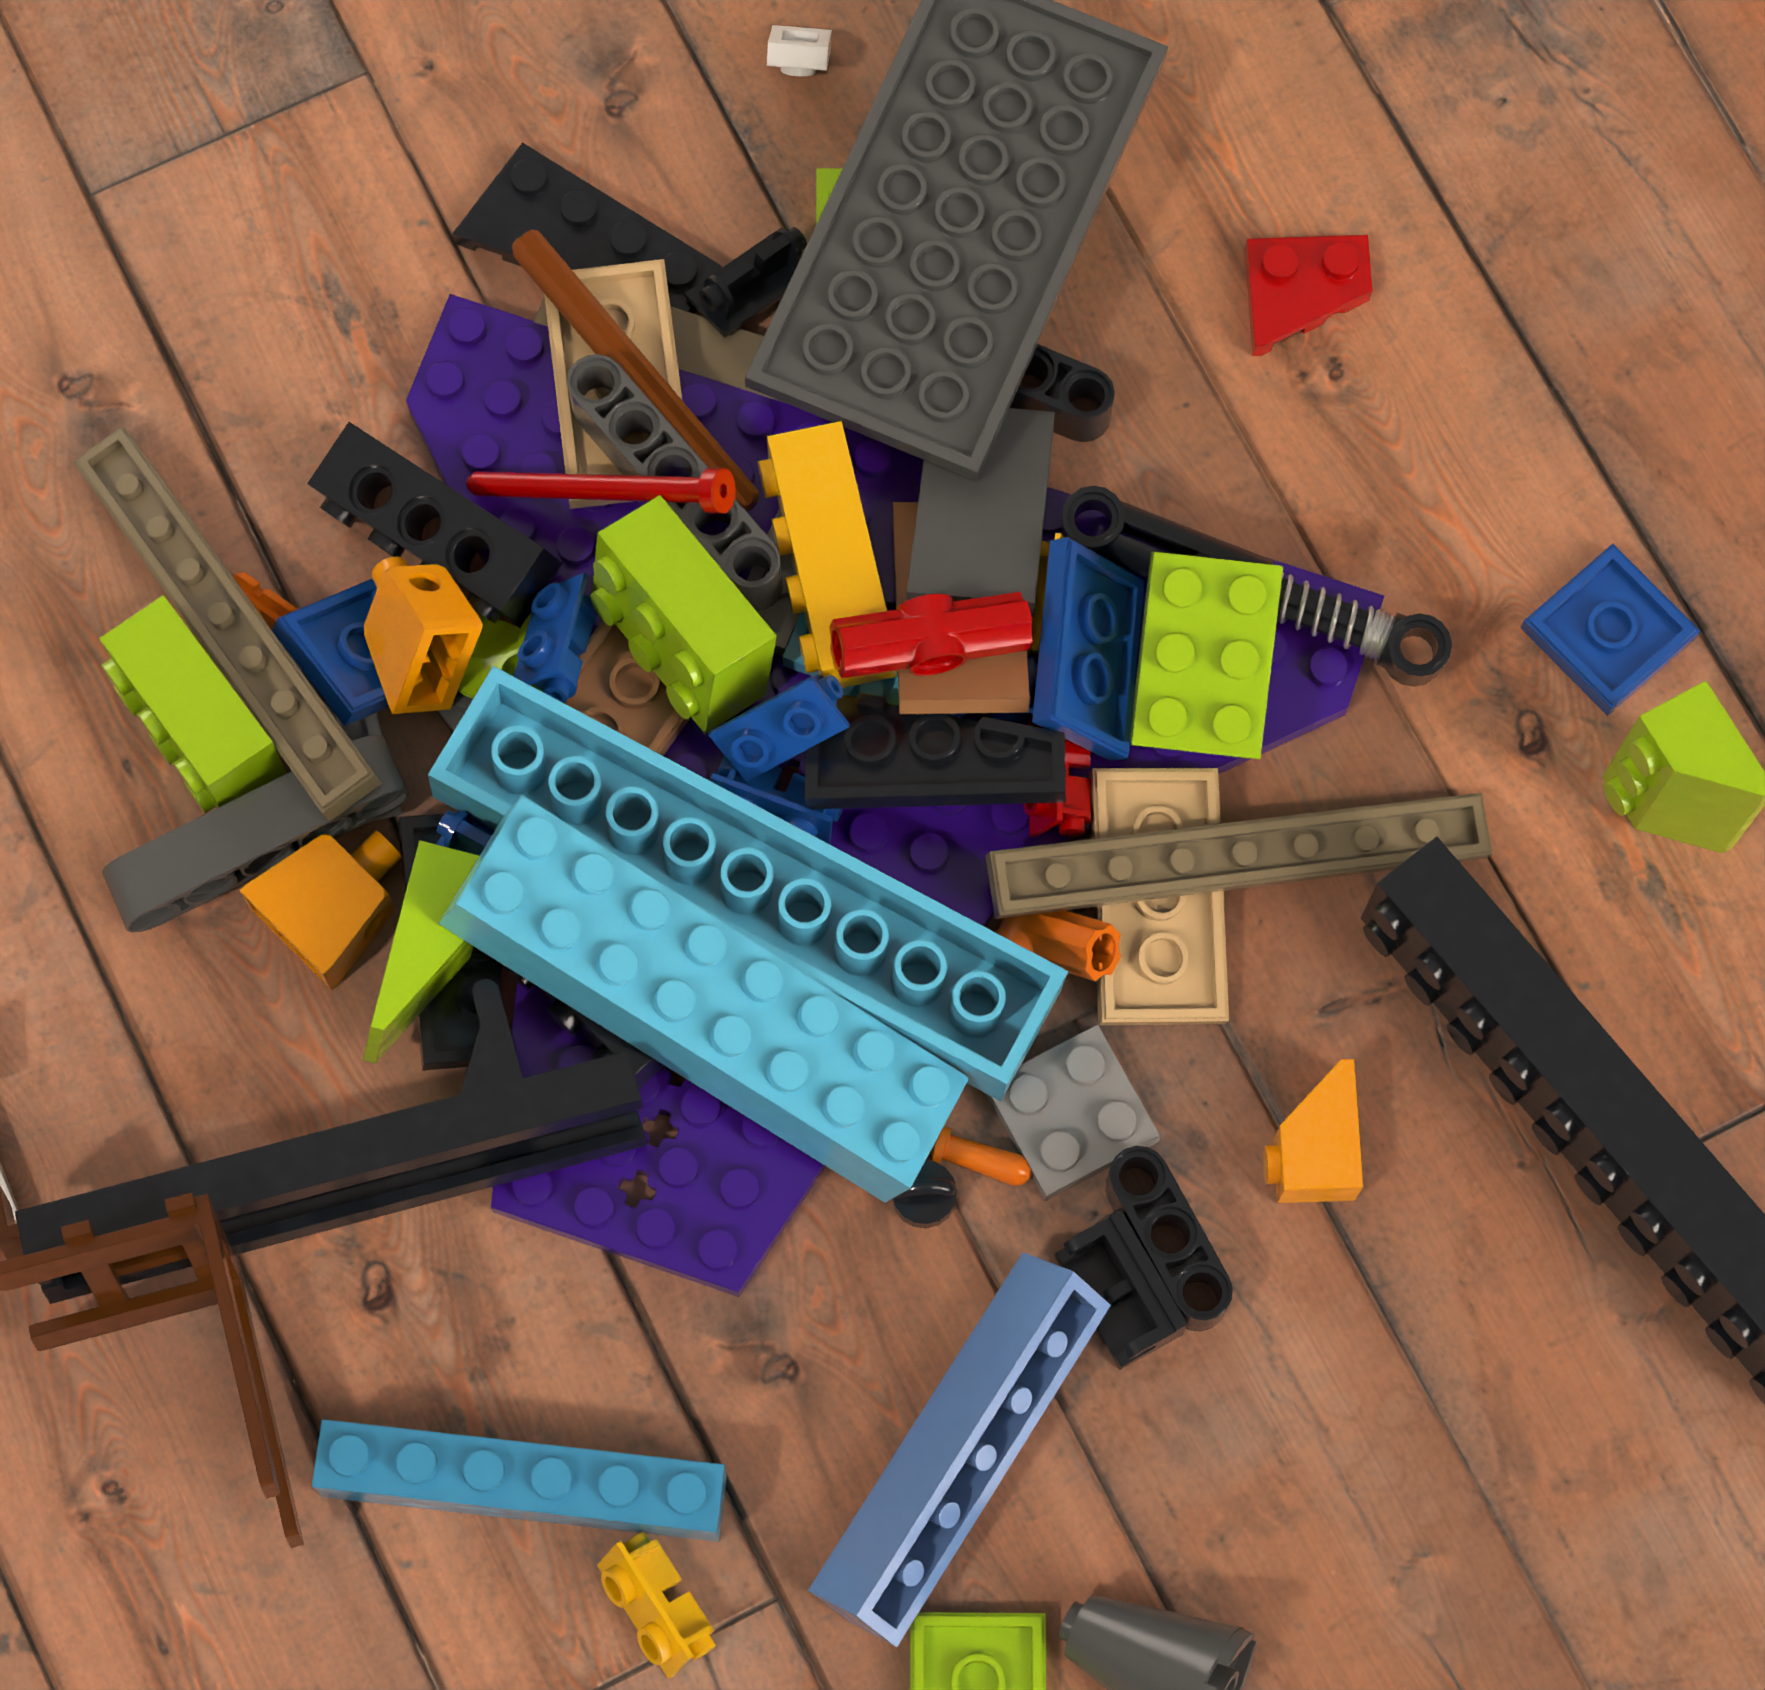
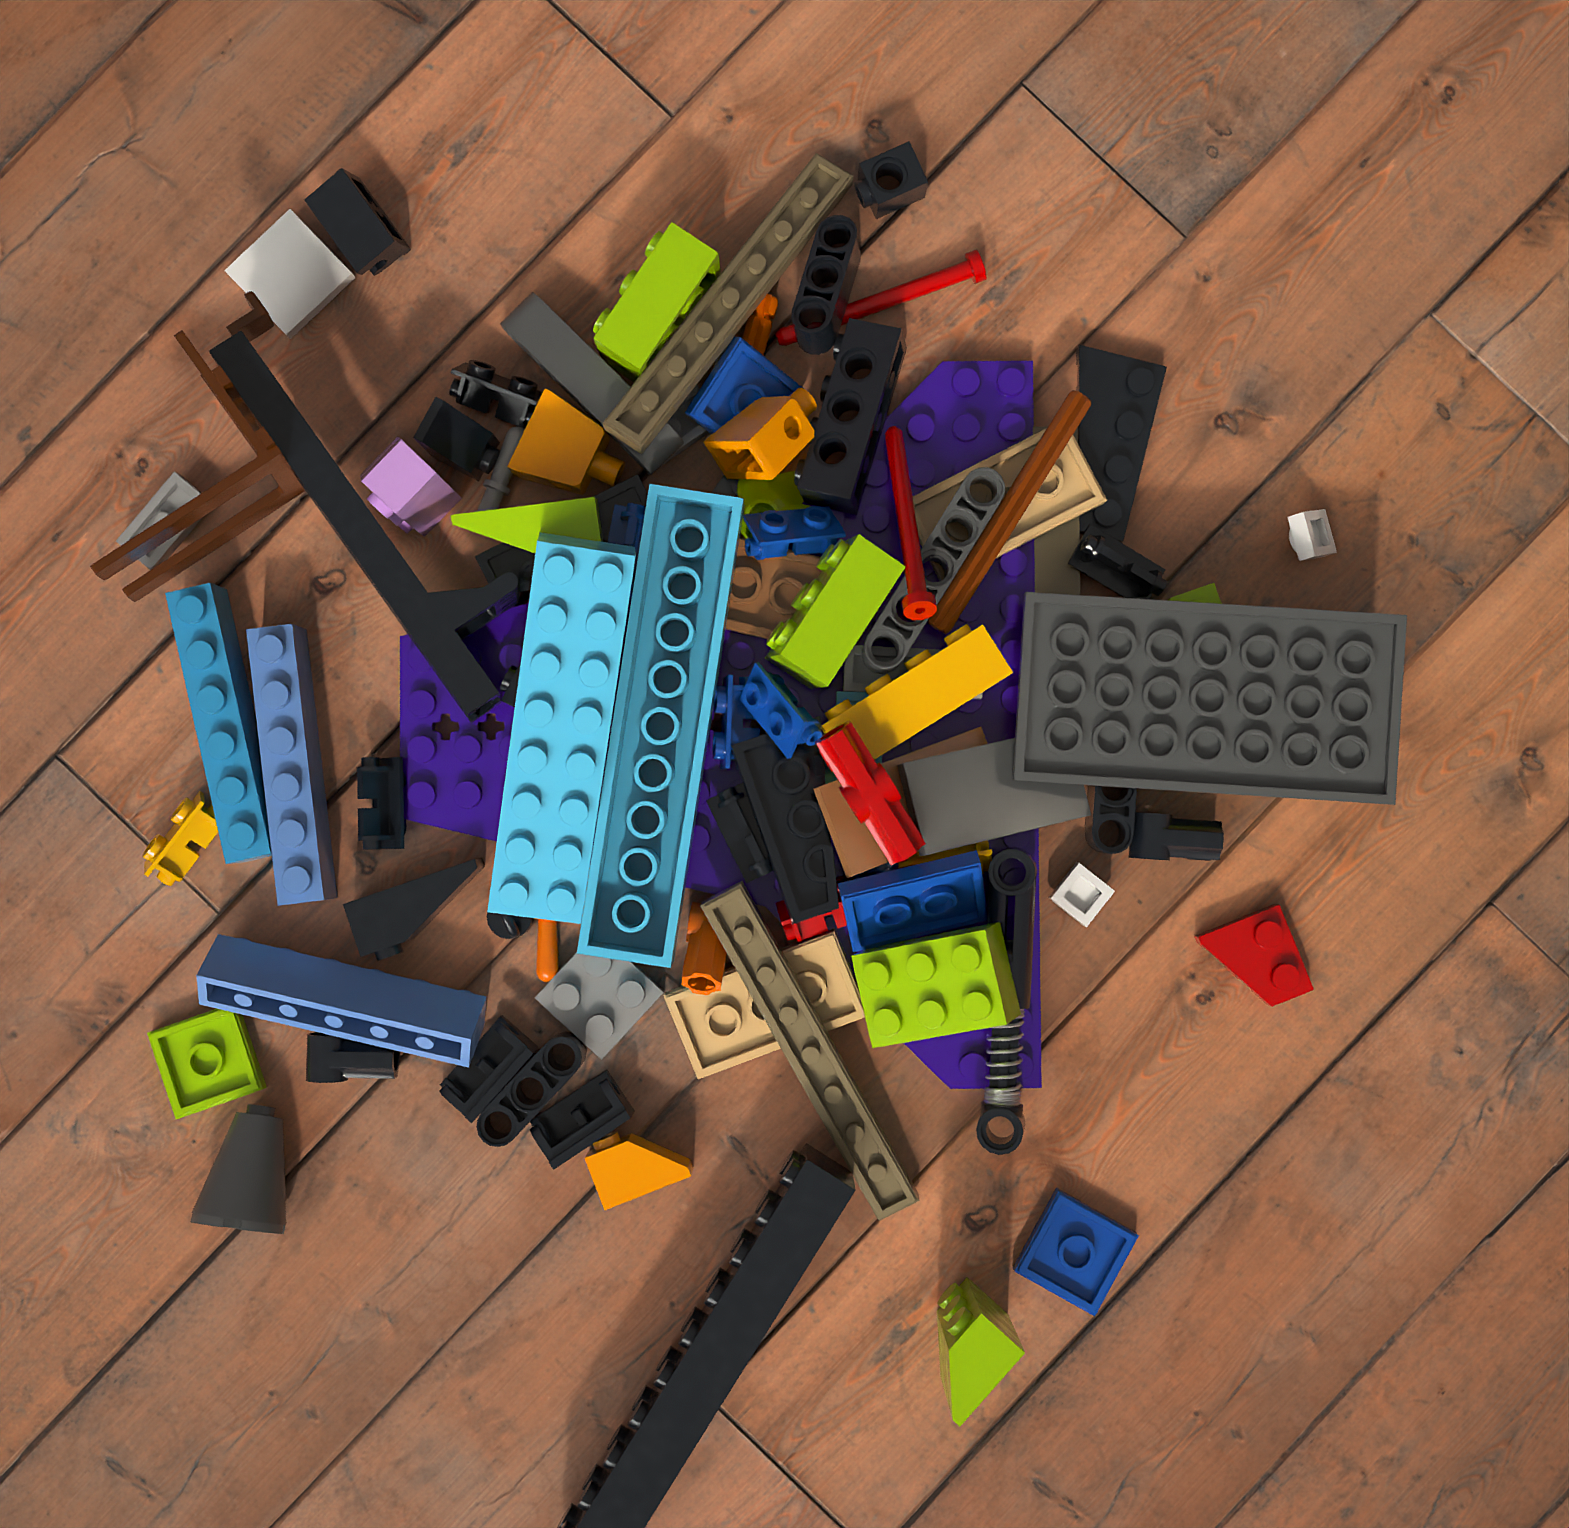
camera: 75 degrees right, 15 degrees up
(147, 358) = (900, 164): none -> black brick
(197, 982) = (481, 385): none -> black hinge
(207, 1474) = (168, 498): none -> light grey plate
(232, 483) = (824, 266): none -> black beam
(264, 1028) = (457, 440): none -> black slope
(284, 1093) = (408, 489): none -> lavender wedge
(301, 325) = (971, 268): none -> red bar
(309, 985) = (501, 475): none -> light grey piece
(610, 1407) = (291, 764): none -> medium blue brick
(712, 1301) = (383, 783): none -> black hinge
(867, 1329) = (402, 912): none -> black slope
(923, 837) = (741, 831): none -> black hinge
(1037, 1484) = (337, 1059): none -> black piece
(1121, 325) = (1164, 837): none -> black piece
(1151, 464) = (1081, 894): none -> white plate
(1231, 1187) = (580, 1119): none -> black hinge

